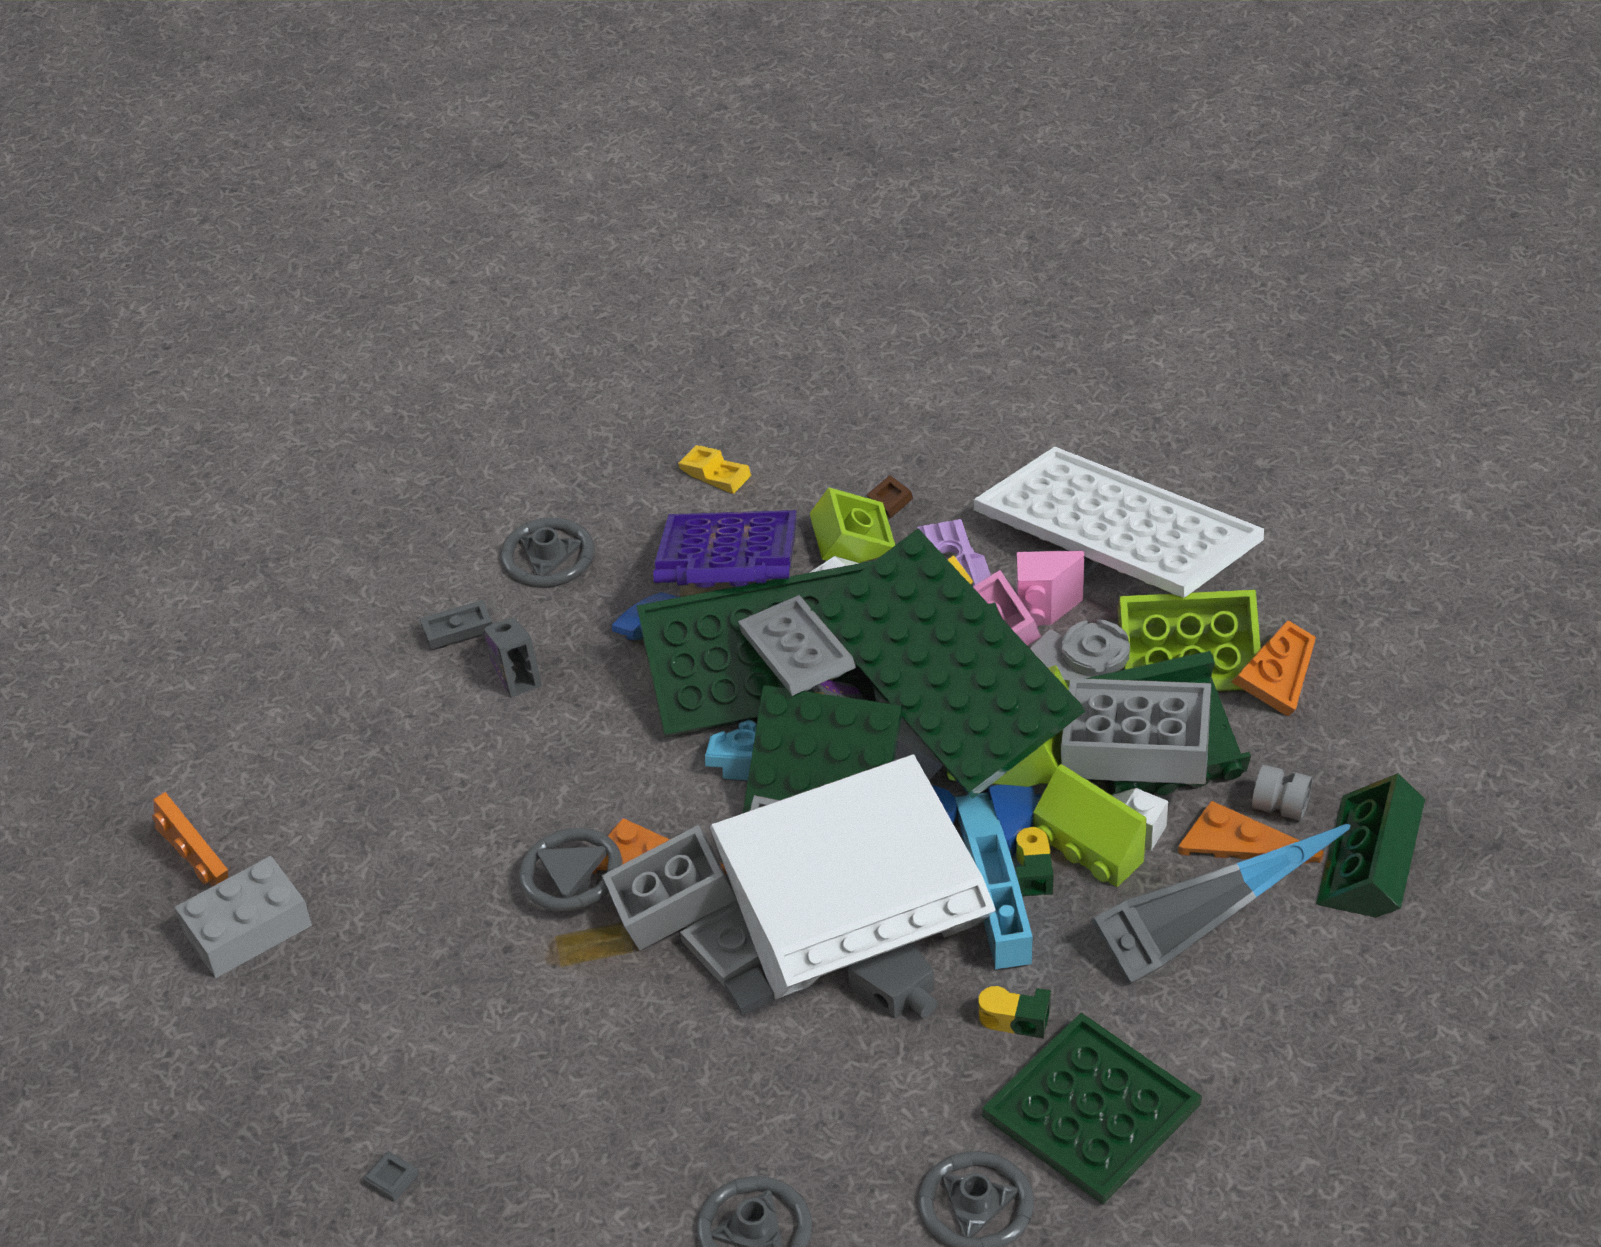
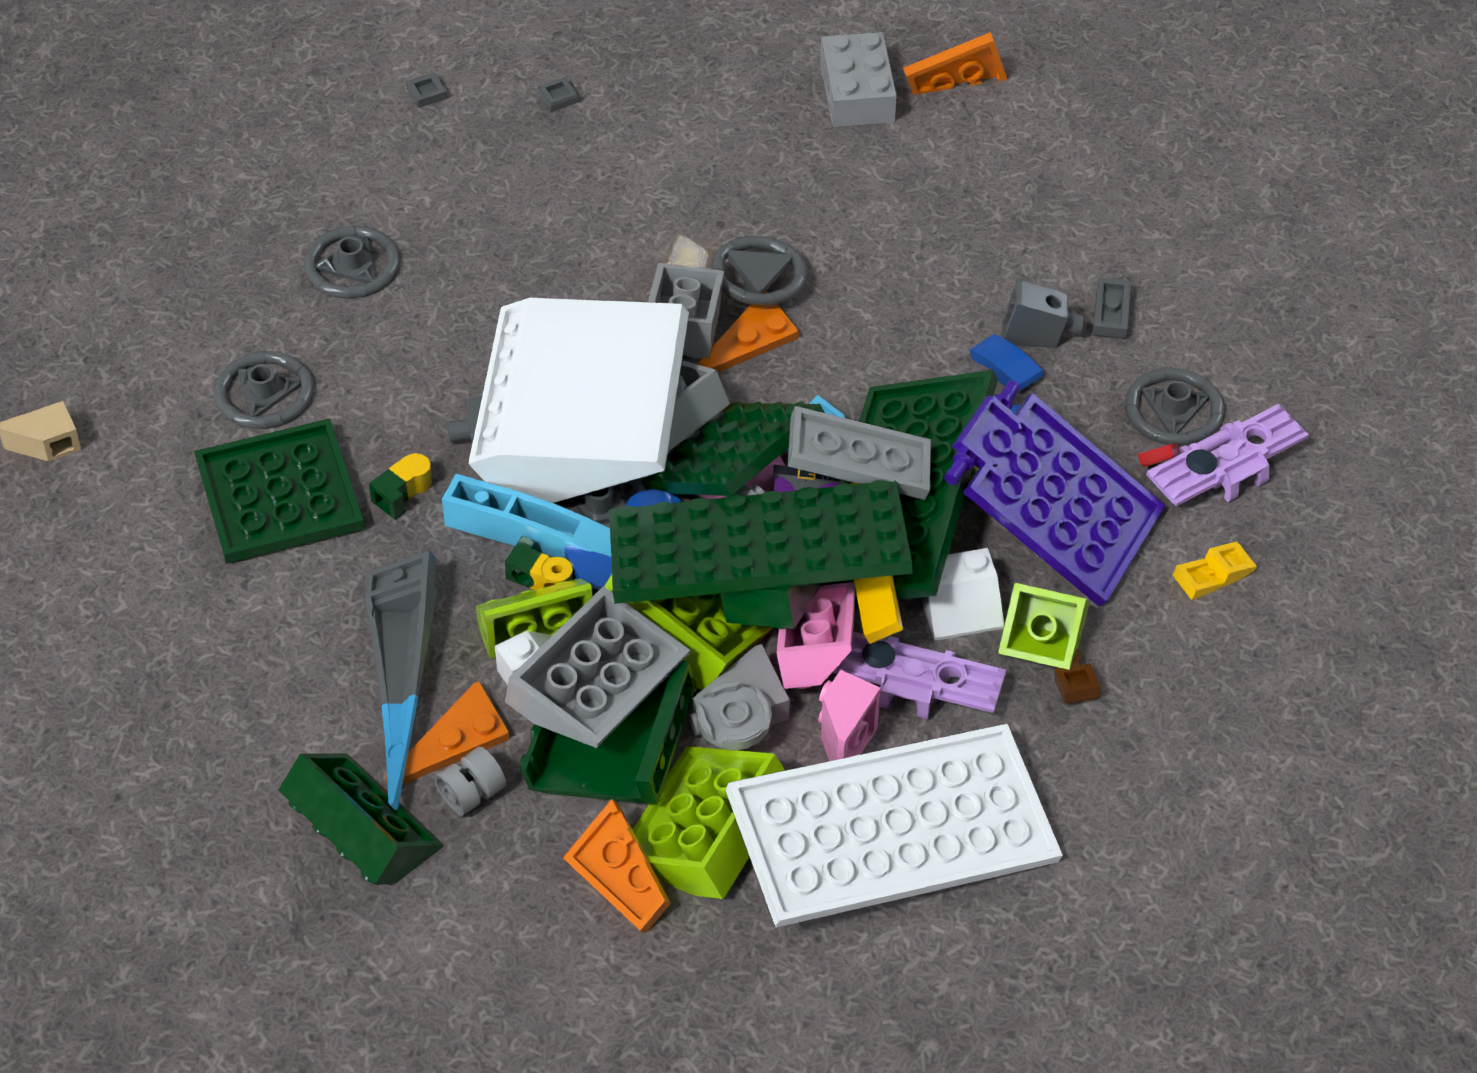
camera: 115 degrees right, 5 degrees up
(567, 665) = (1006, 361): none -> blue slope
(600, 481) = (1200, 470): none -> lavender piece
(620, 529) = (1159, 454): none -> red tile

